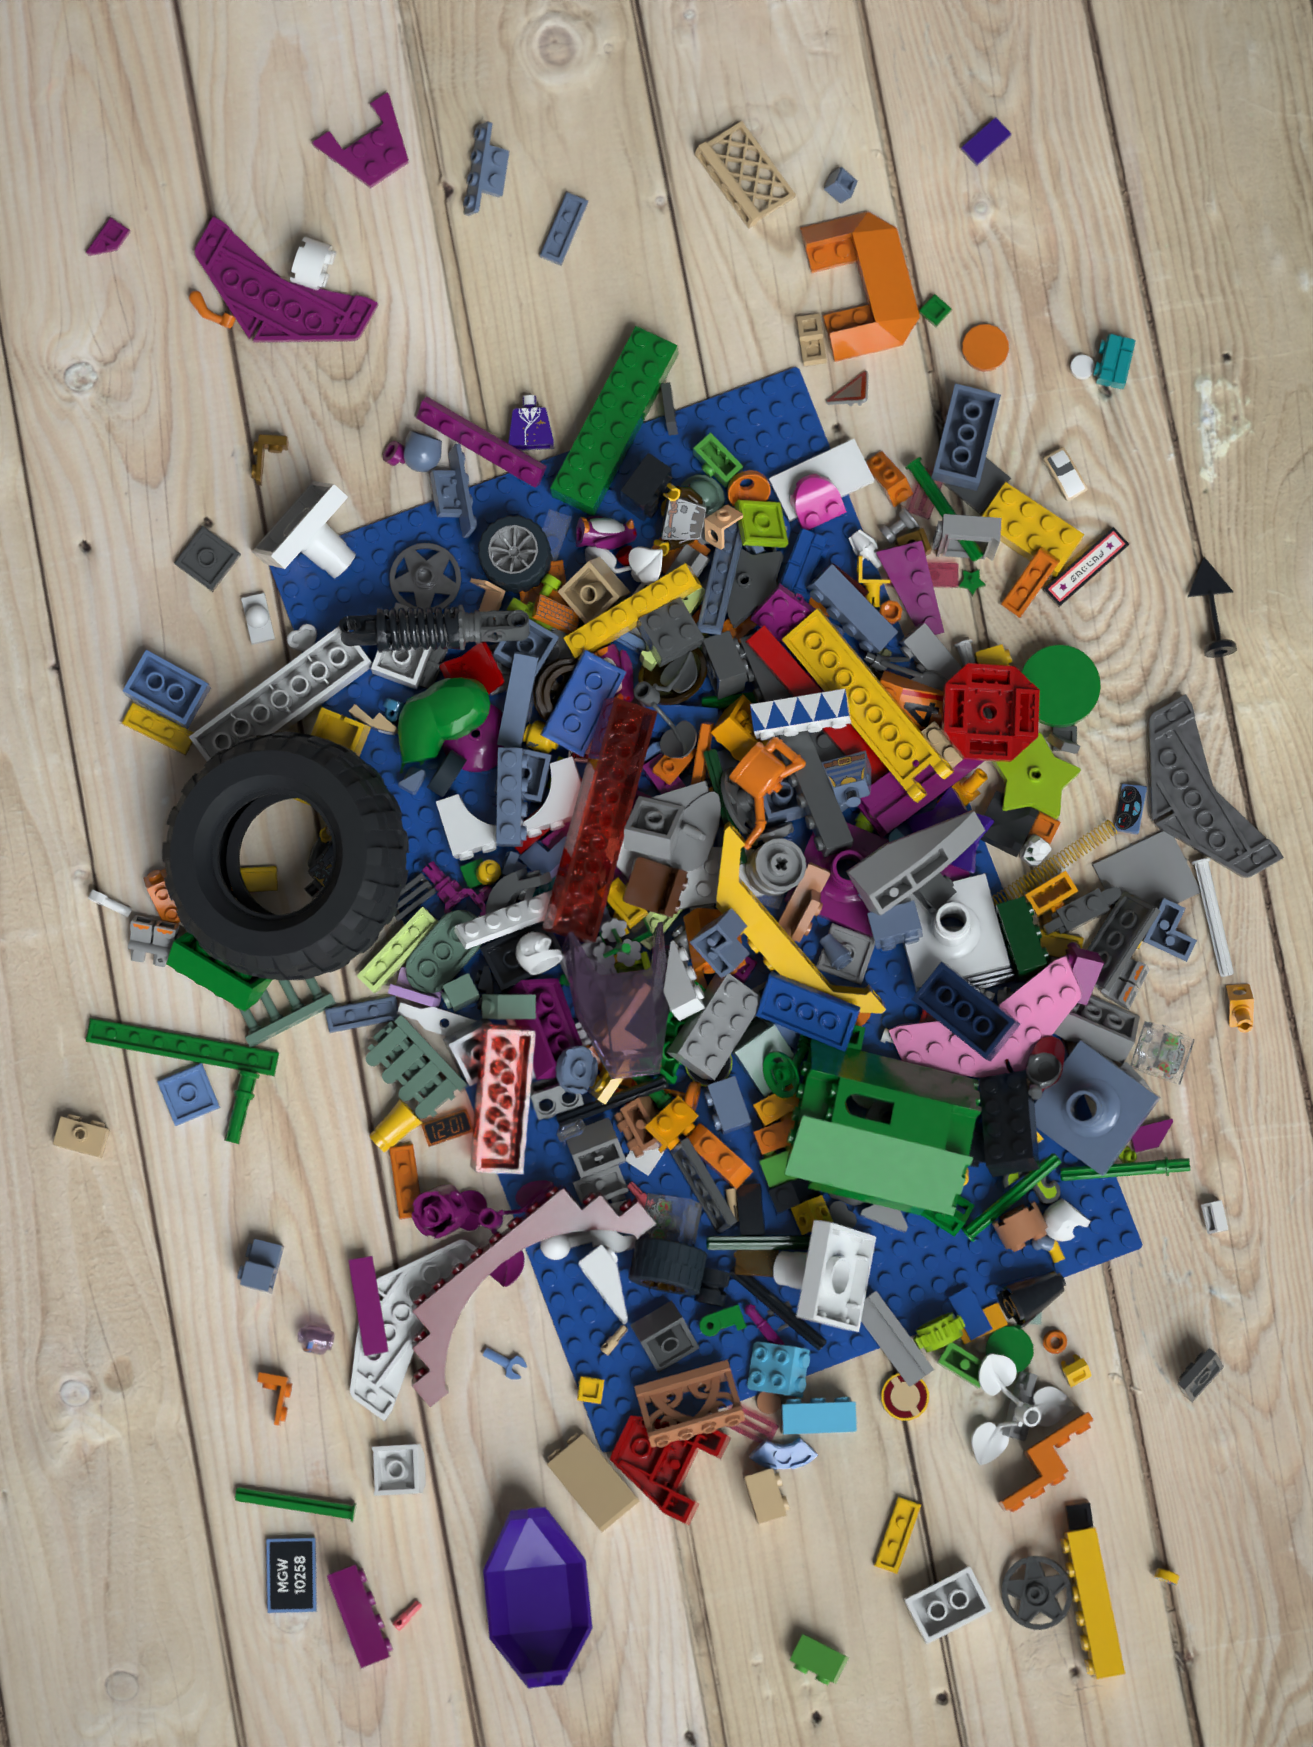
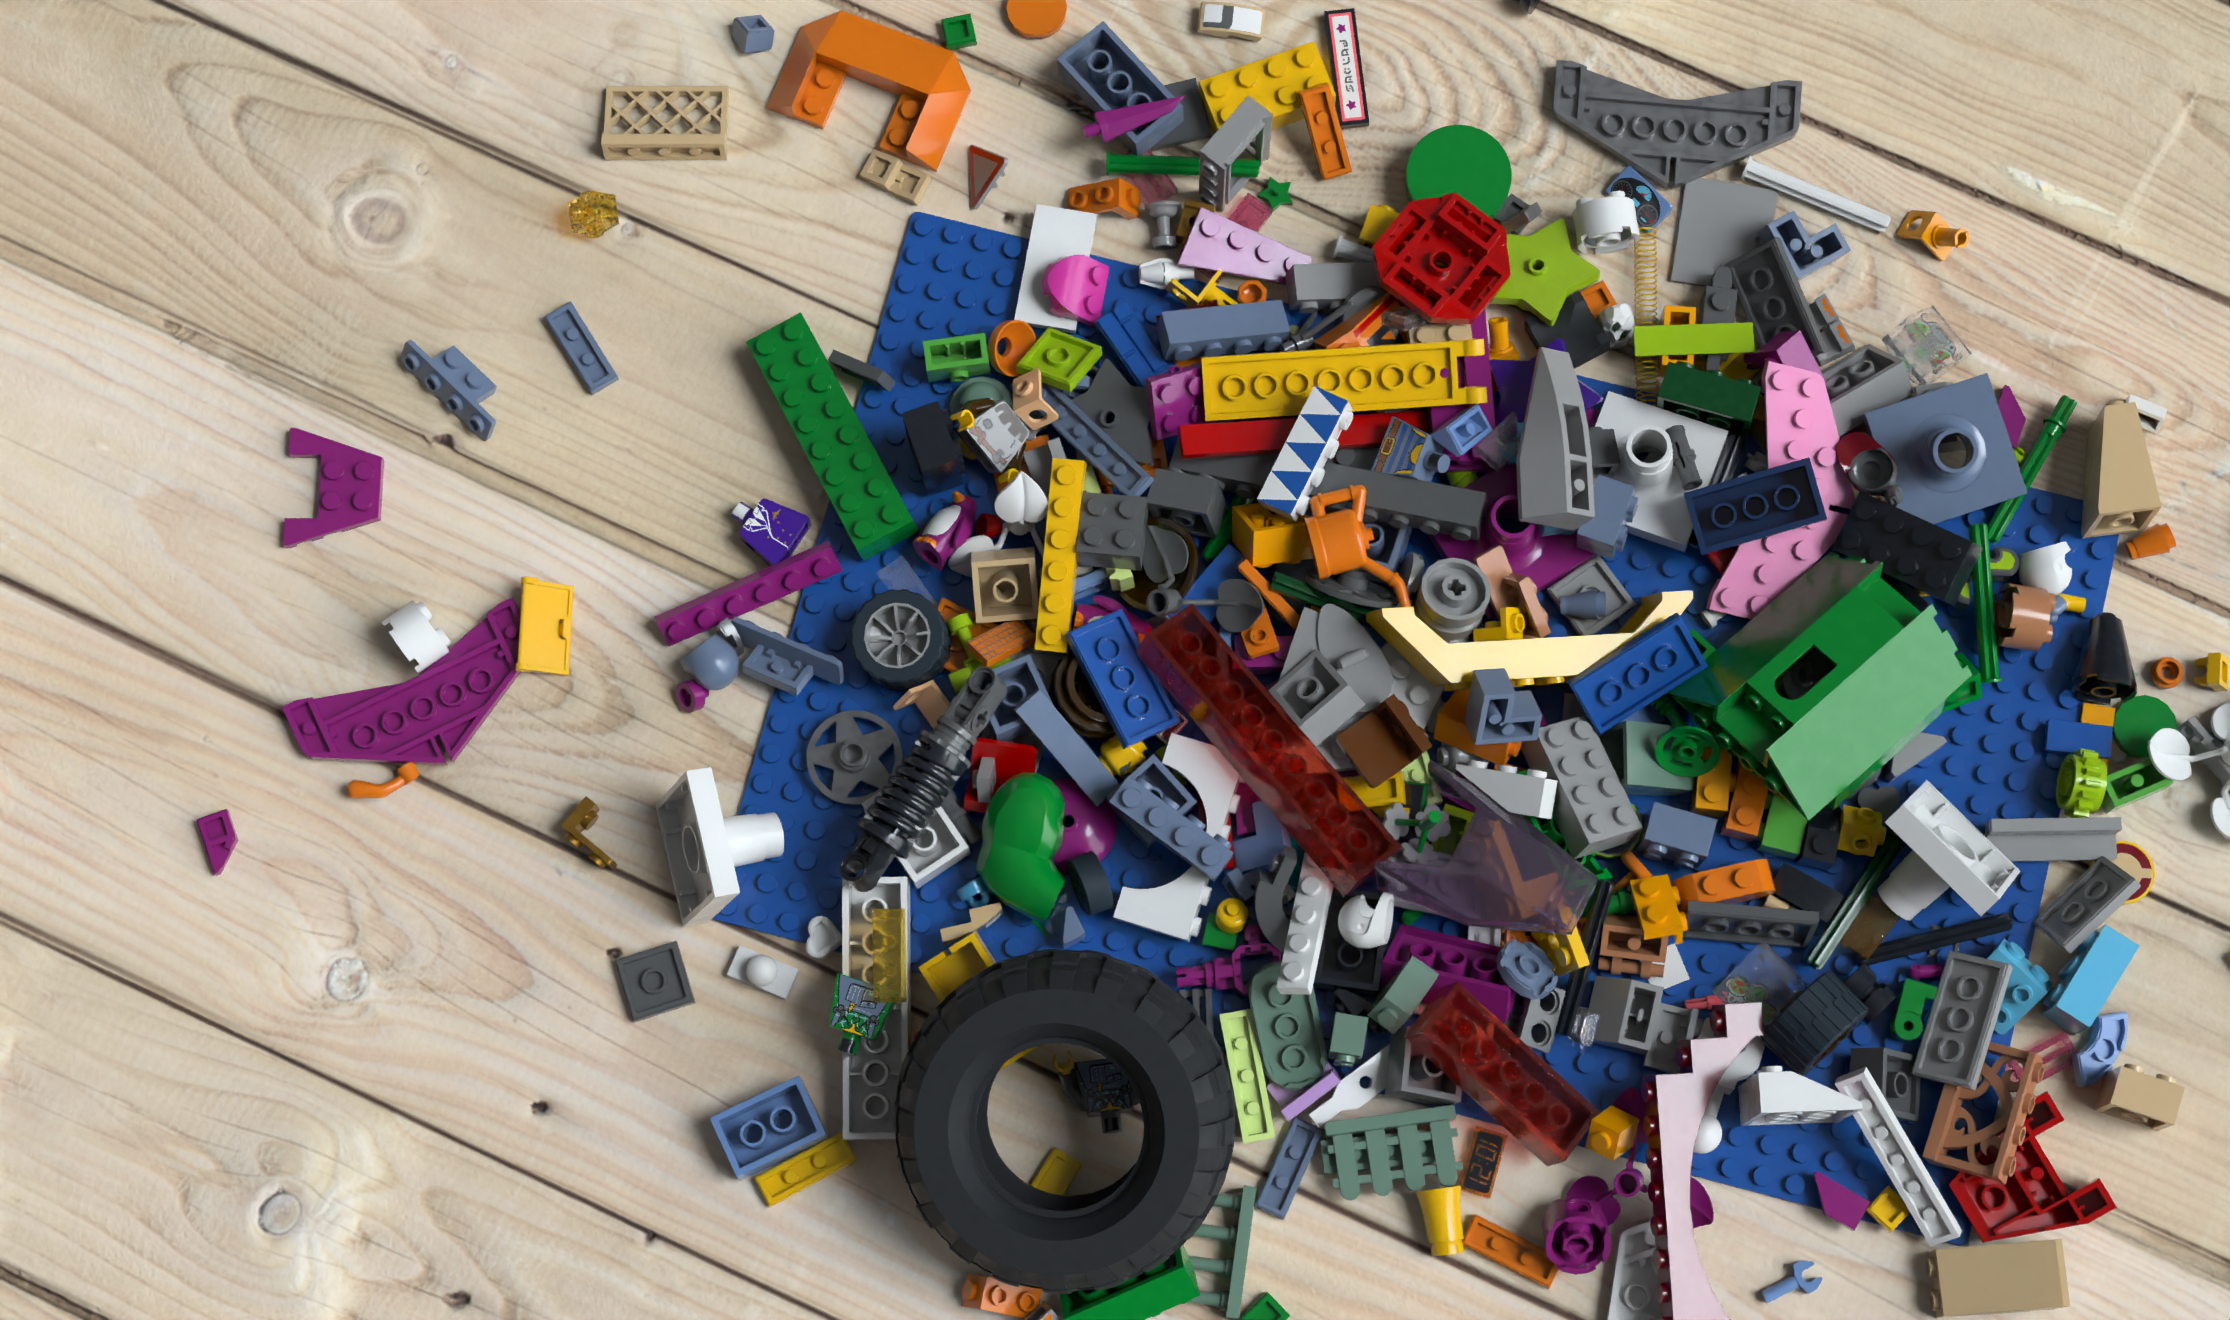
camera: 50 degrees left, 5 degrees down
(269, 691) = (856, 1012): none -> torso
(313, 684) = (889, 955): none -> clear yellow tile
(371, 333) = (540, 627): none -> yellow door
(447, 450) = (729, 633): none -> flat silver tile
(464, 665) = (985, 779): none -> light grey plate
(516, 1190) = (1612, 1133): none -> light orange brick
(573, 1357) = (1839, 1202): none -> magenta tile
(613, 1340) = (1850, 1145): tan pin -> none
(621, 1370) = (1899, 1158): none -> white plate
(651, 173) = (593, 213): none -> clear yellow brick
(735, 1355) = (1962, 1020): none -> light grey tile
(768, 1402) = (2031, 1025): nougat tile -> none
(782, 913) = (1509, 627): none -> yellow bracket
(864, 1384) = (2086, 904): none -> light grey tile
(885, 800) = (1463, 430): none -> medium blue slope
(894, 828) = (1501, 443): none -> clear tile
(933, 713) = (1402, 319): none -> clear tile
(938, 450) = (1121, 120): none -> magenta bar
(970, 947) = (1684, 458): none -> dark grey pin
(1055, 903) = (1694, 339): none -> lime sticker
(1096, 798) = (1605, 223): none -> white brick
(1133, 1277) = (2151, 542): none -> orange cone
(1152, 1229) = (2118, 474): none -> tan slope

